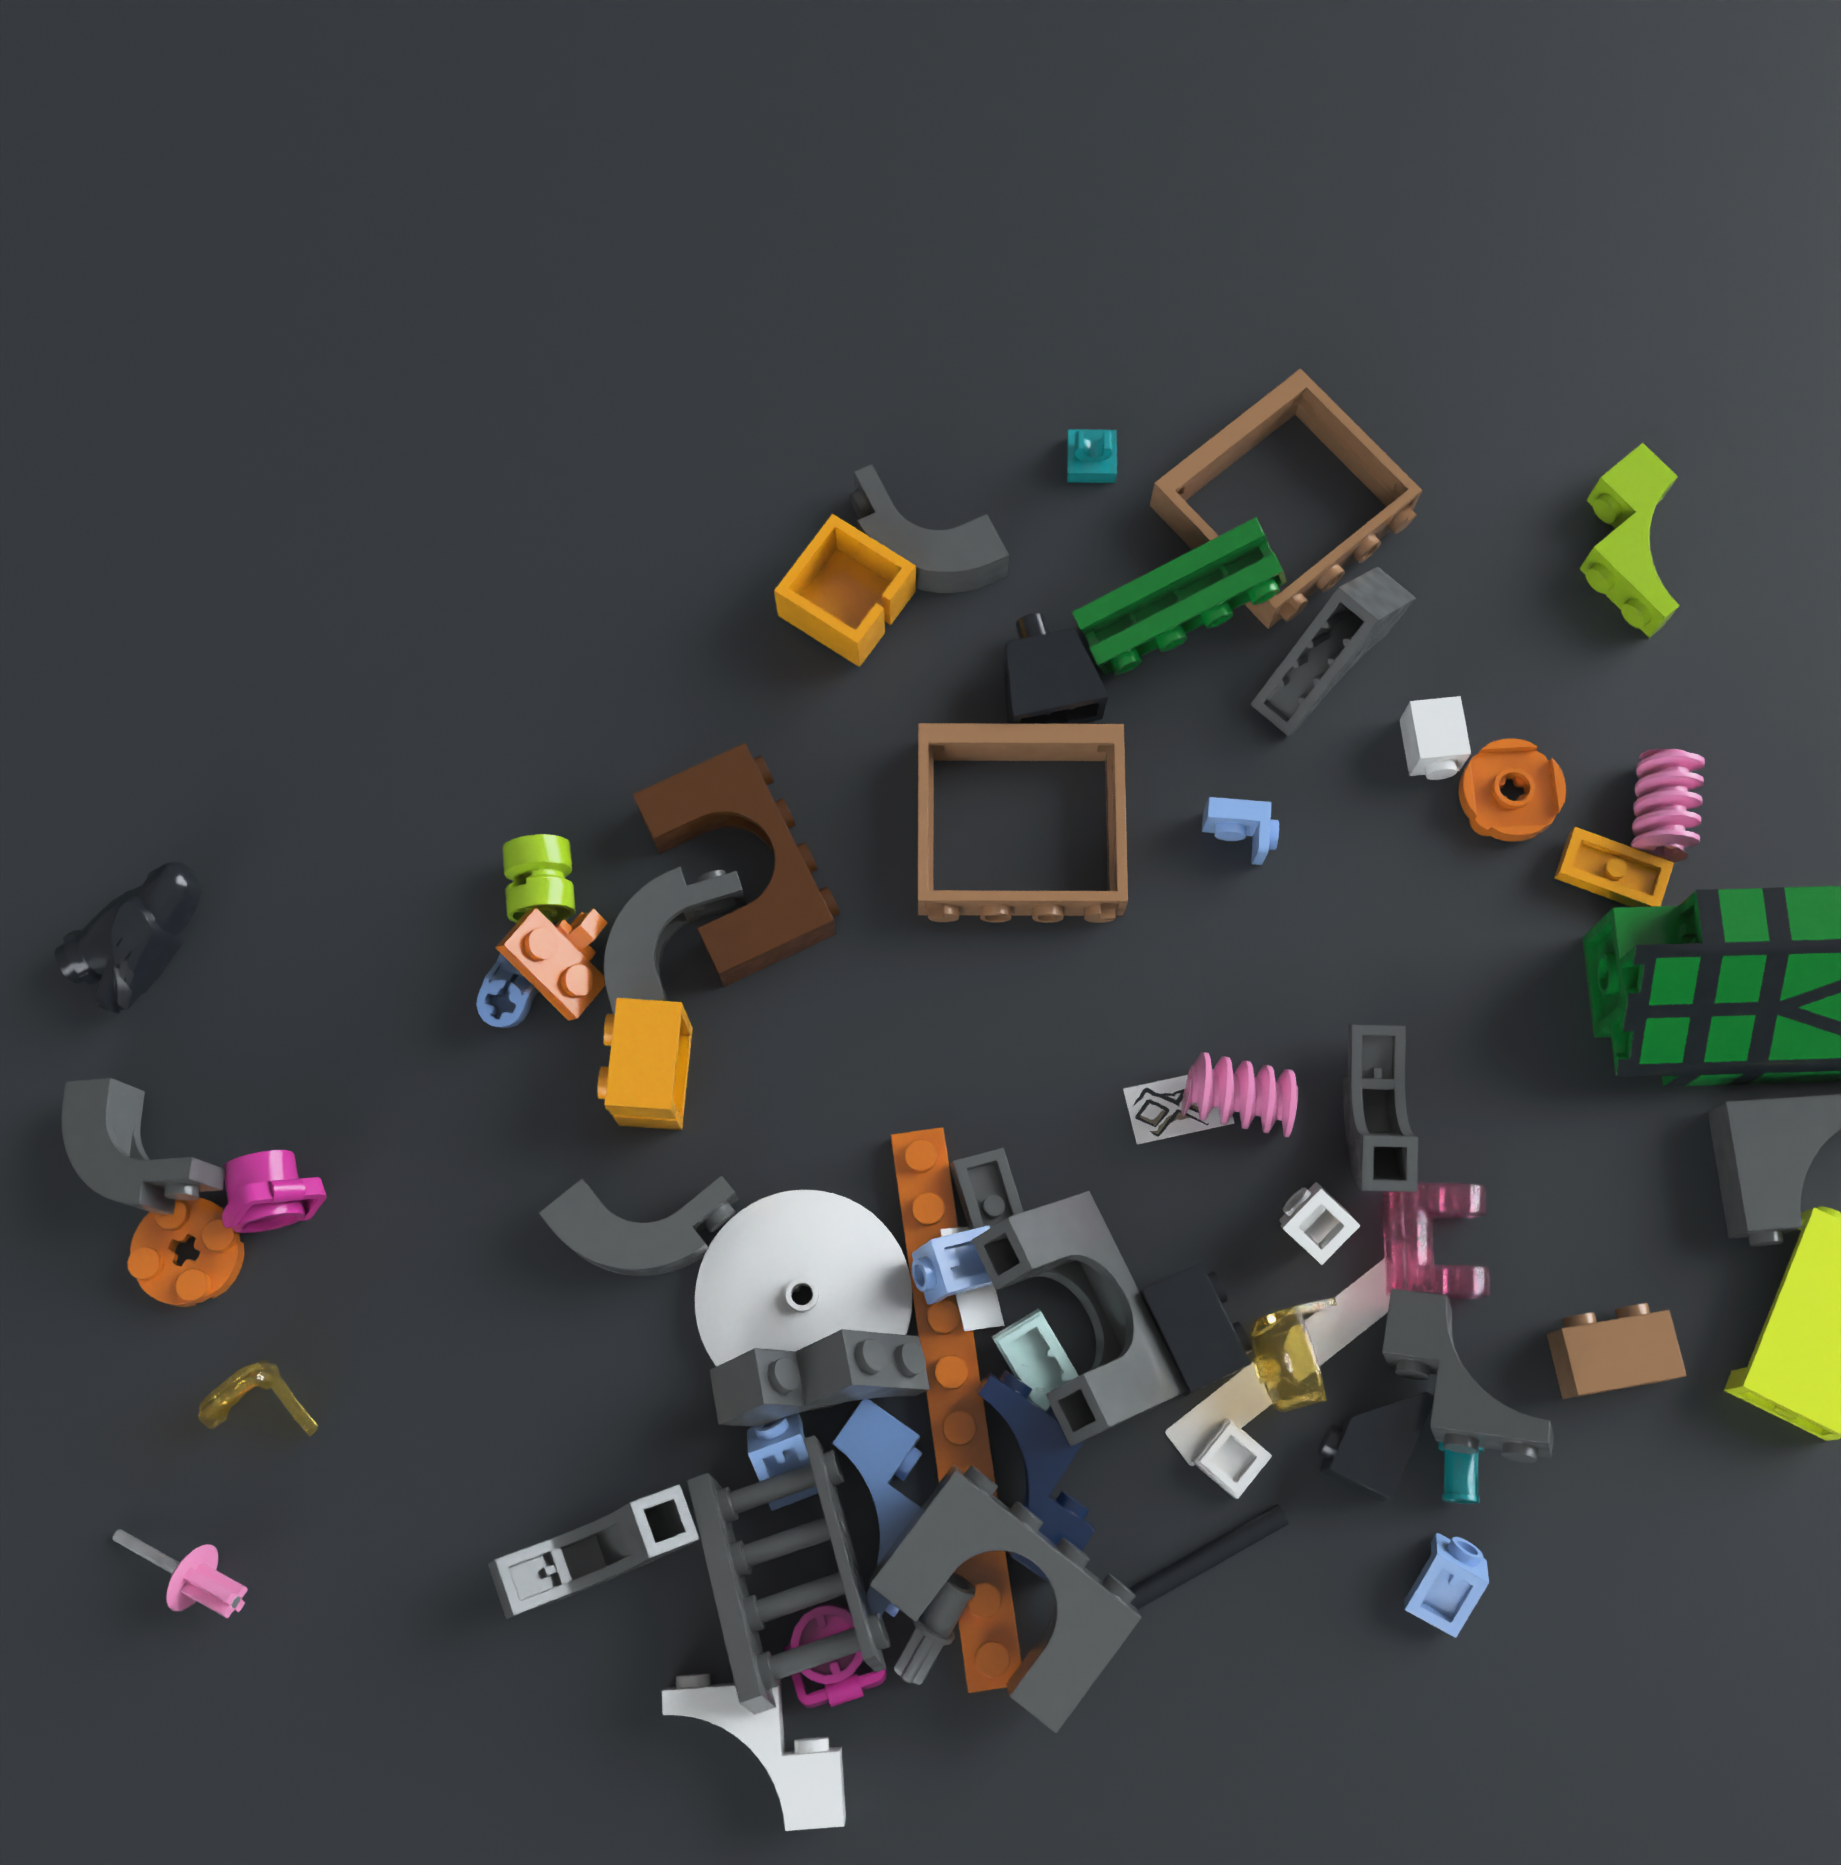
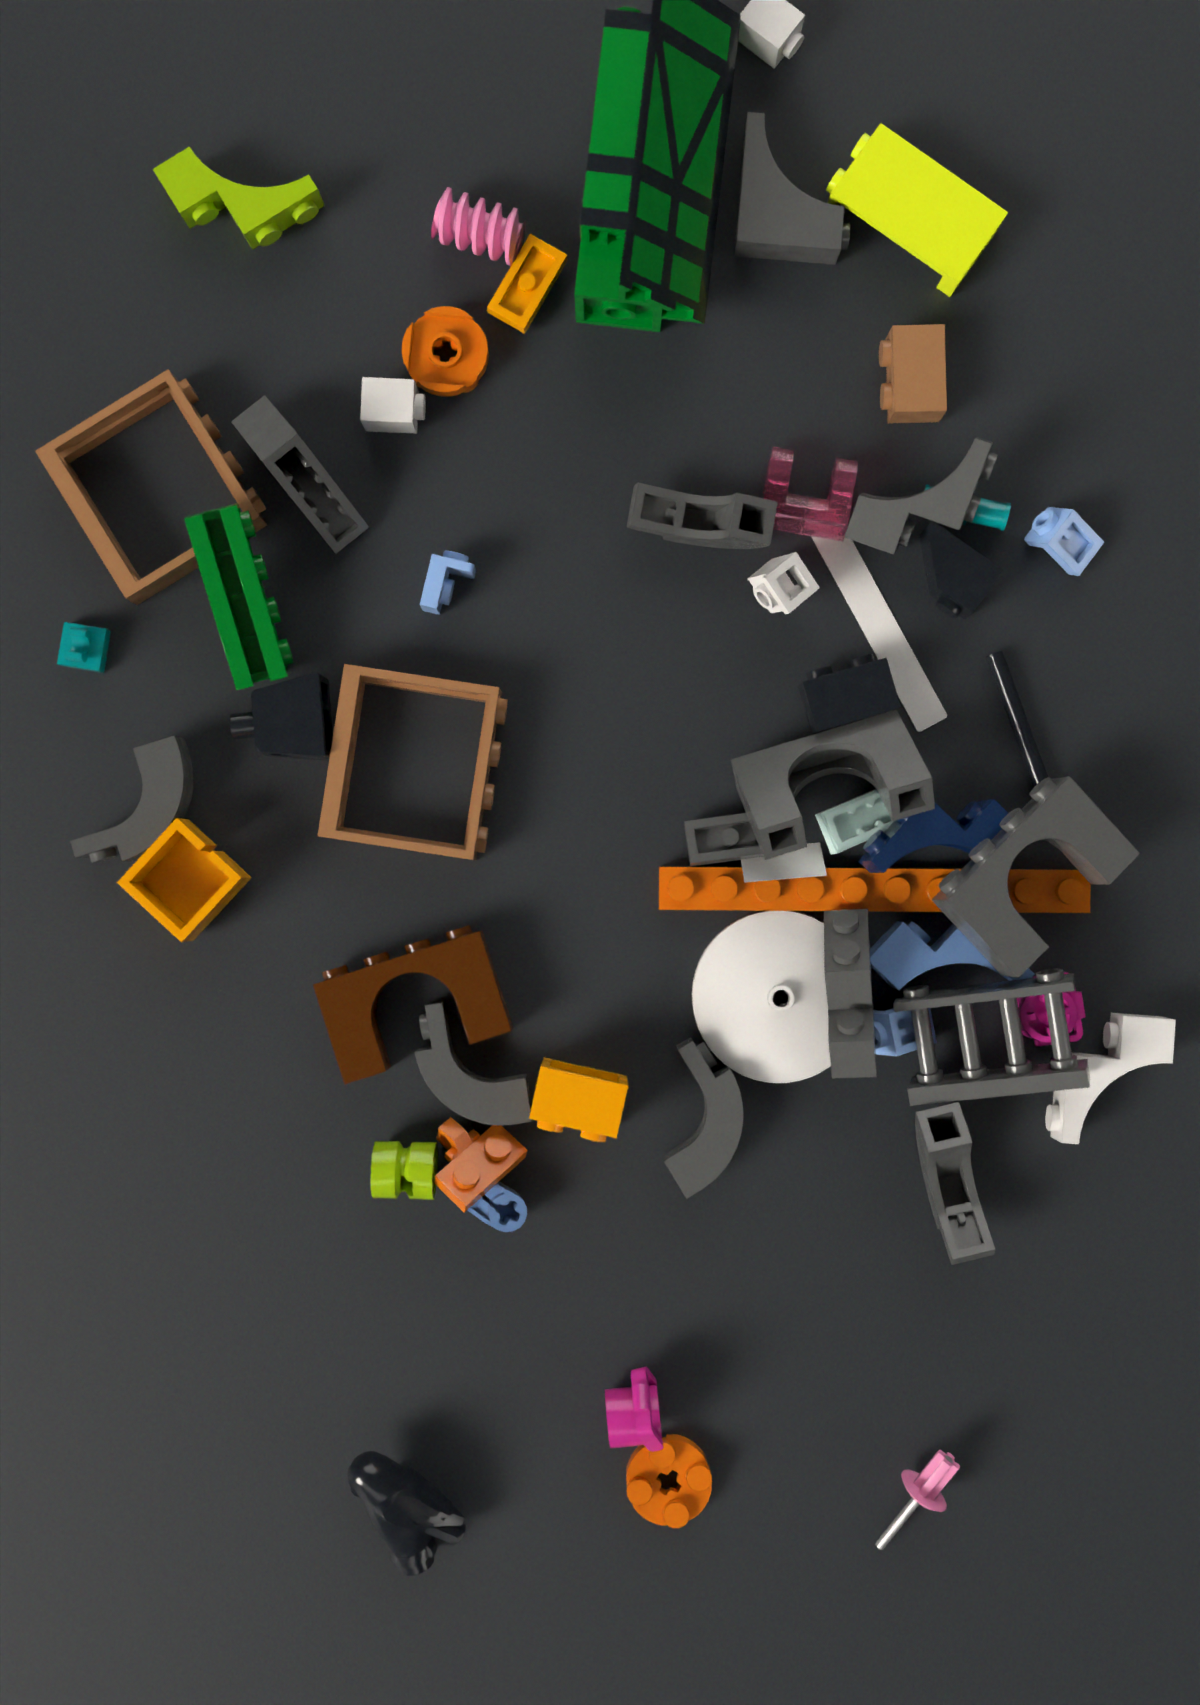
camera: 75 degrees left, 15 degrees up
(107, 1152) = (590, 1538): dark grey arch -> none
(263, 1374) = (783, 1435): clear yellow piece -> none
(934, 1630) = (1060, 946): dark grey axle -> none
(949, 1266) = (777, 879): light blue bracket -> none
(1157, 1111) = (666, 675): white sticker -> none
(1231, 1458) = (947, 684): white tile -> none
(1241, 1093) = (668, 624): bright pink piece -> none
(1288, 1358) = (880, 629): clear yellow piece -> none

